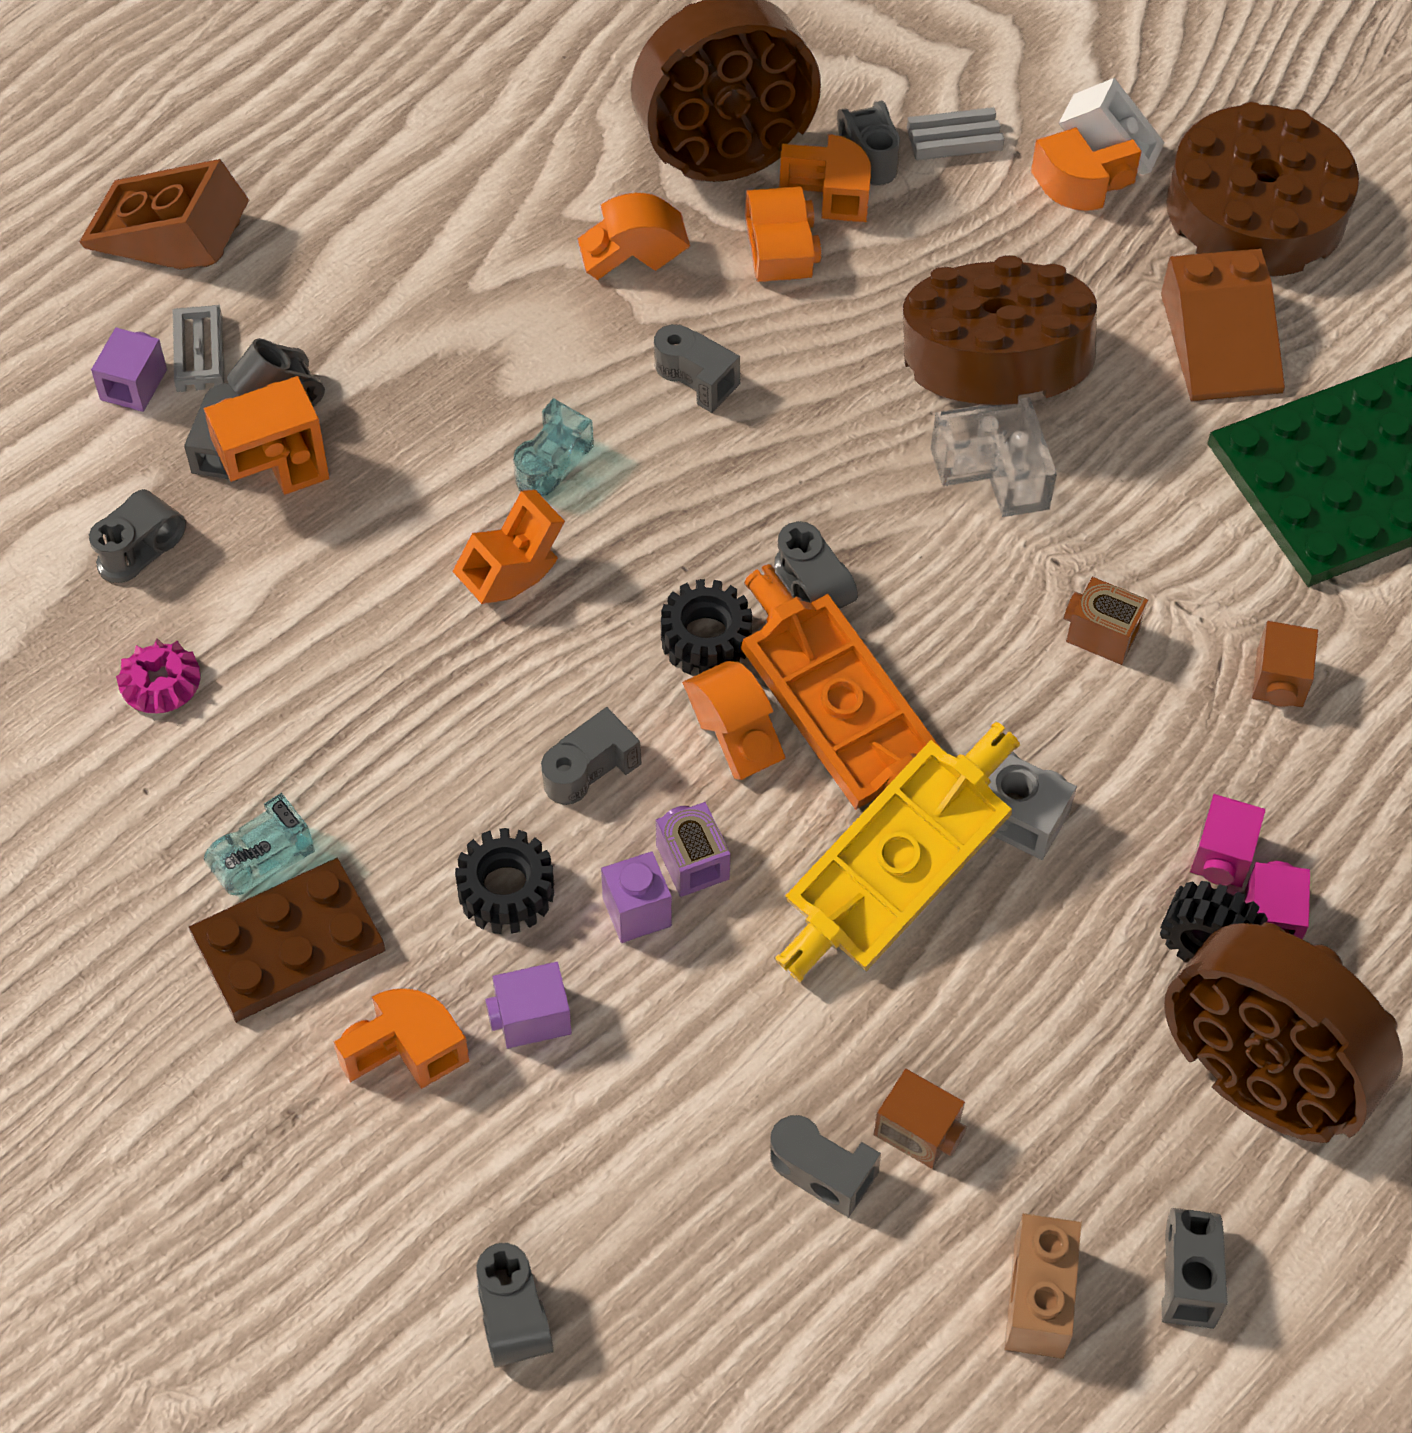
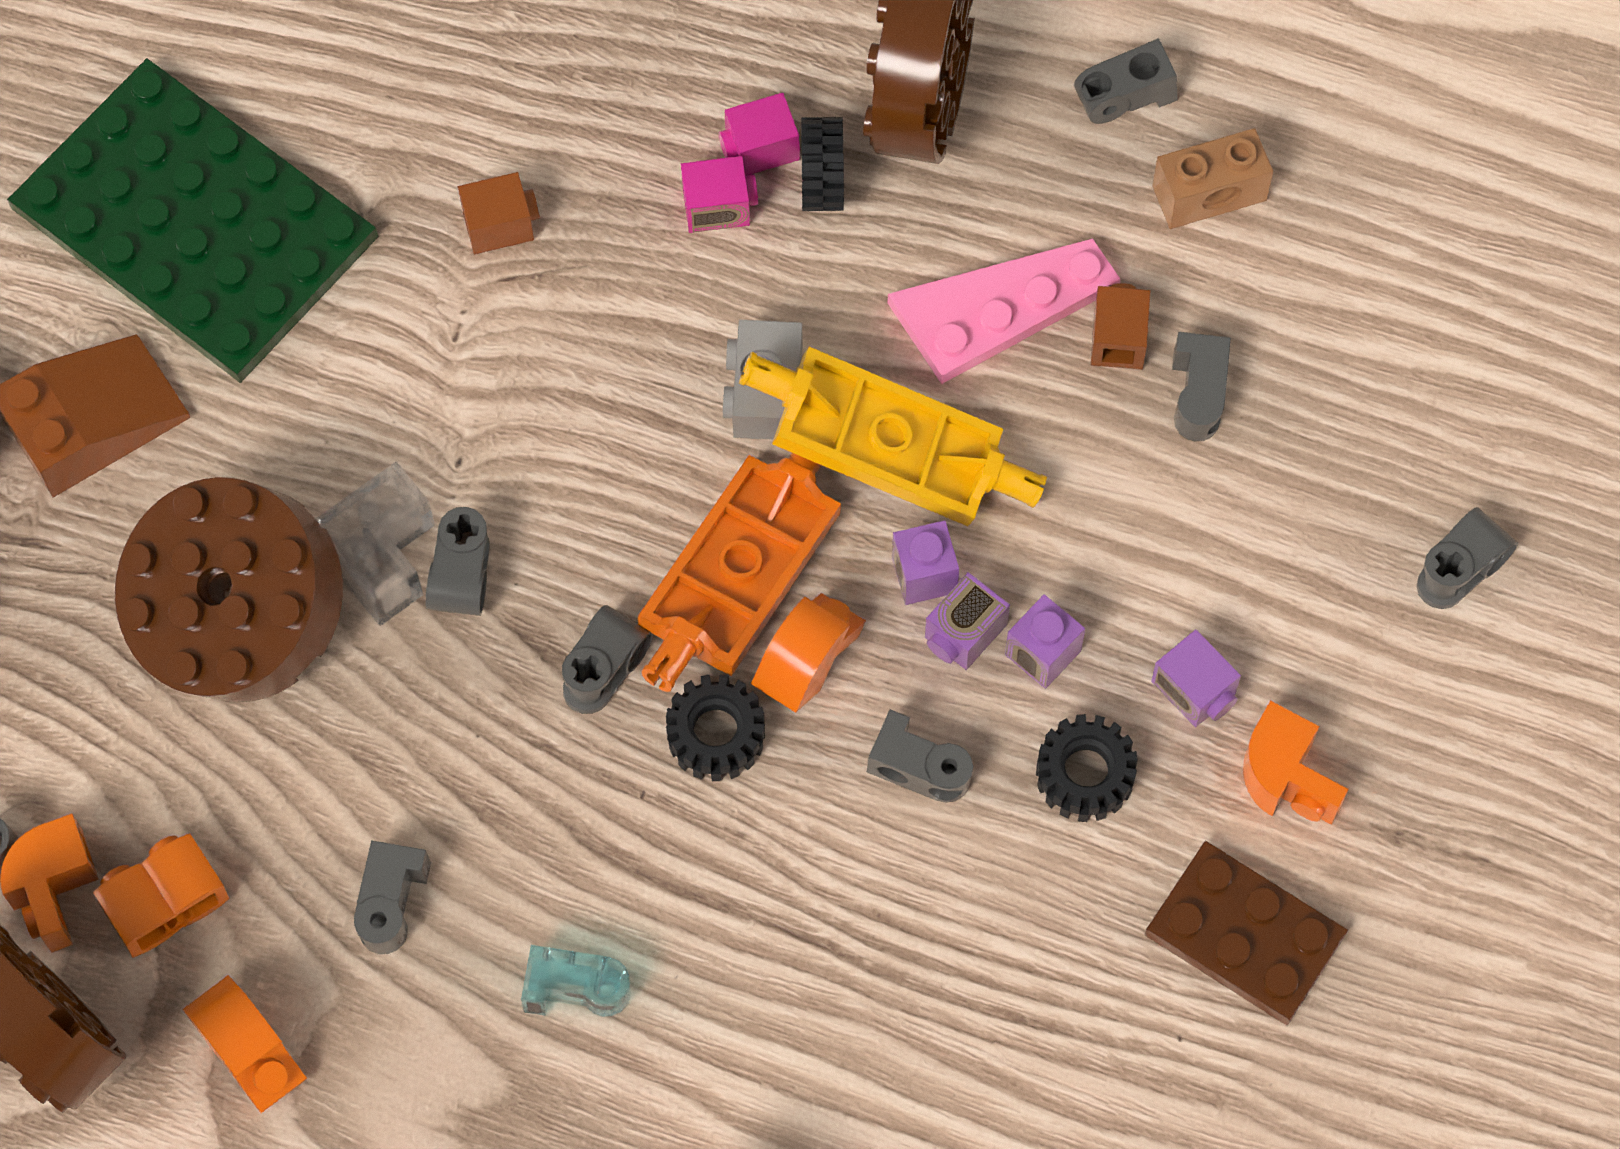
camera: 115 degrees left, 10 degrees up
(260, 847) = (1178, 1004): clear light blue leg -> none
(512, 559) = (732, 947): orange brick -> none
(764, 838) = (925, 562): none -> medium lavender brick
(949, 506) = (459, 571): none -> dark grey piece
(1000, 1031) = (995, 307): none -> bright pink wing
(1105, 619) = (523, 378): dark orange brick -> none

